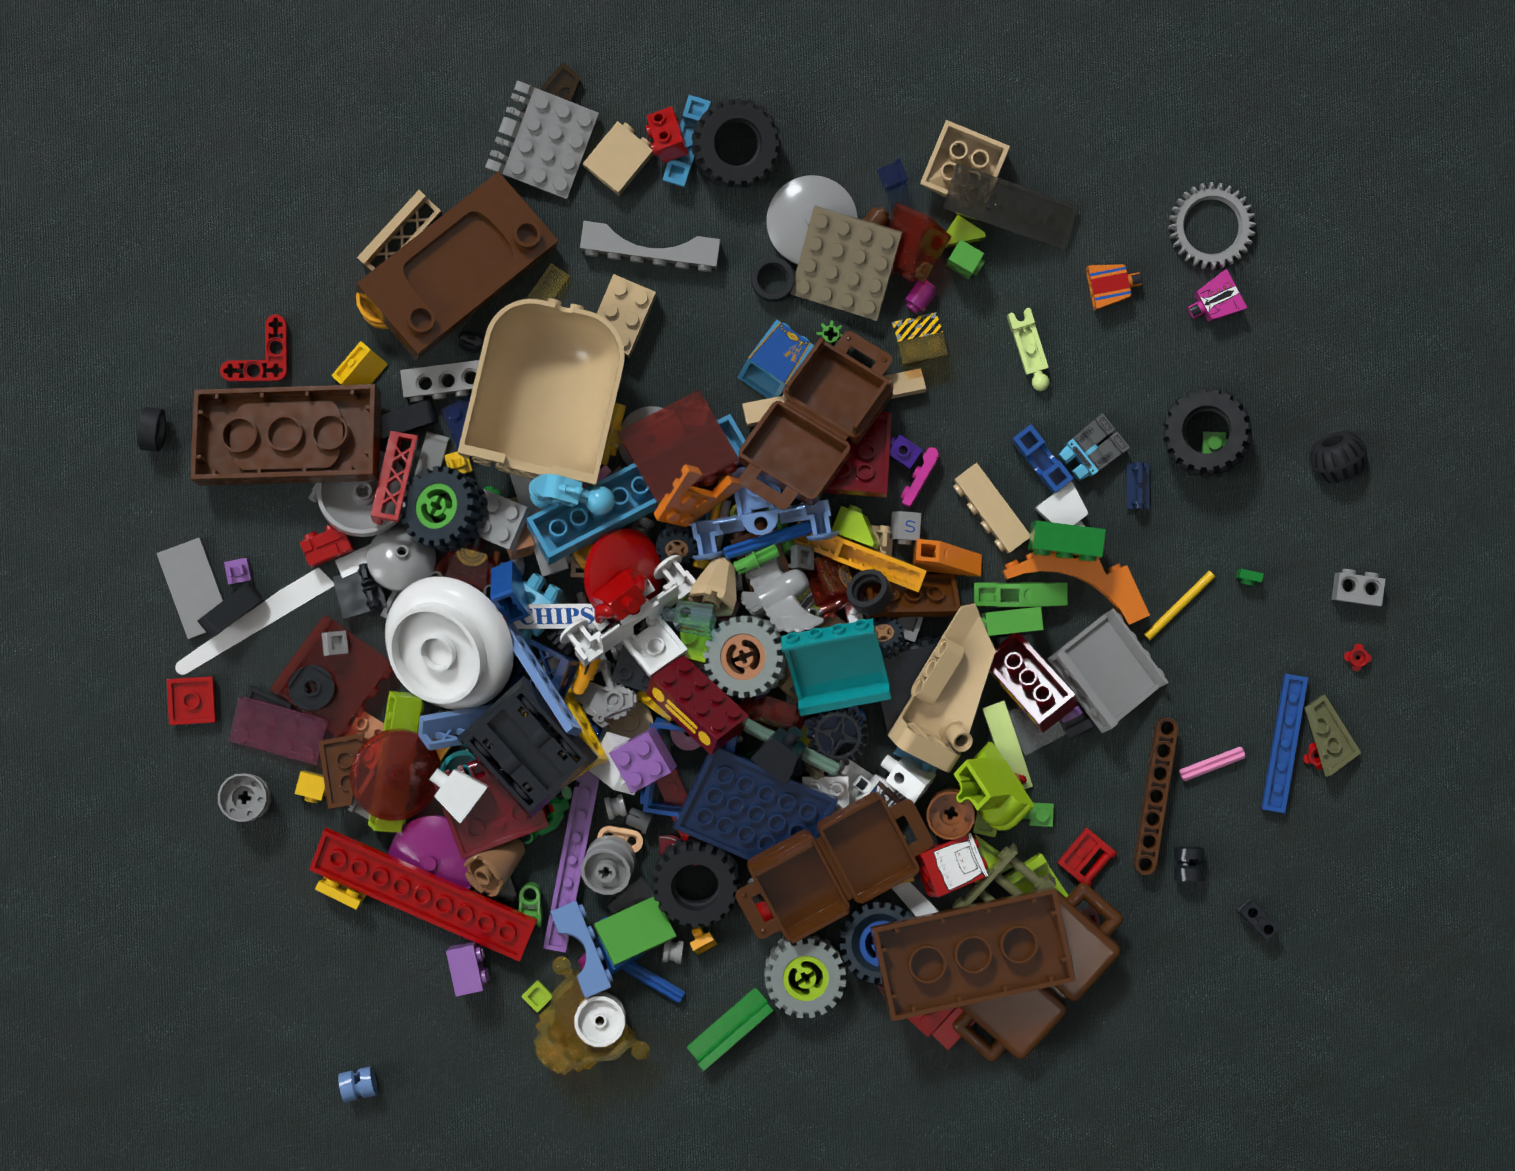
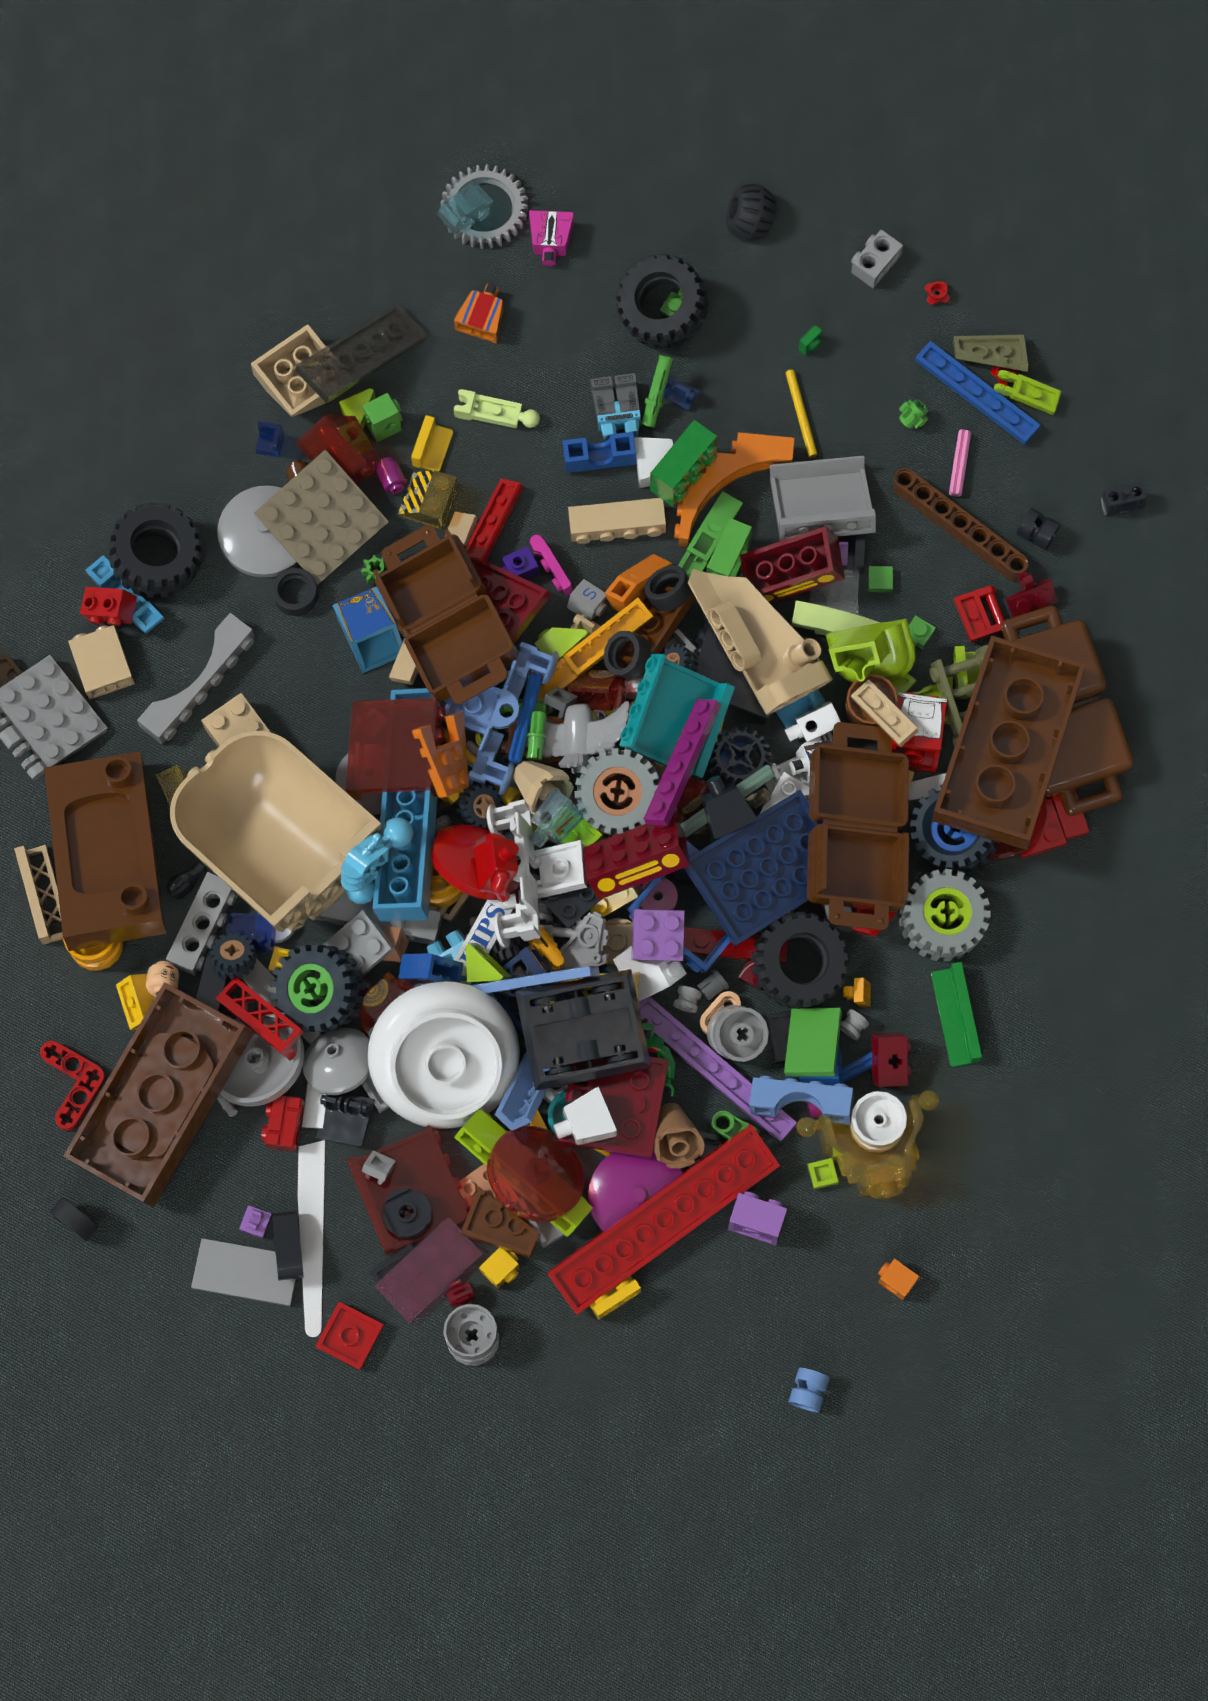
camera: 50 degrees left, 15 degrees down
(272, 768) = (460, 1294): none -> dark red gear
(384, 376) = (160, 973): none -> light nougat head
(430, 431) = (241, 960): none -> black wheel
(487, 1103) = (897, 1278): none -> orange brick
(536, 634) = (482, 966): none -> lime slope
(658, 999) = (883, 1047): none -> dark red brick
(797, 696) = (682, 762): none -> magenta plate
(930, 405) = (493, 520): none -> red tile
(942, 834) = (884, 713): none -> tan plate
(957, 576) = (660, 580): none -> black tyre
(968, 314) = (431, 445): none -> yellow panel
(1069, 755) = (880, 579): none -> bright green tile
(1116, 477) = (657, 390): none -> bright green pin
(1124, 891) = (1031, 596): none -> dark red plate
(1197, 212) = (465, 208): none -> clear light blue brick
(1232, 701) = (913, 413): none -> bright green gear
(1309, 788) = (1029, 391): none -> lime hinge

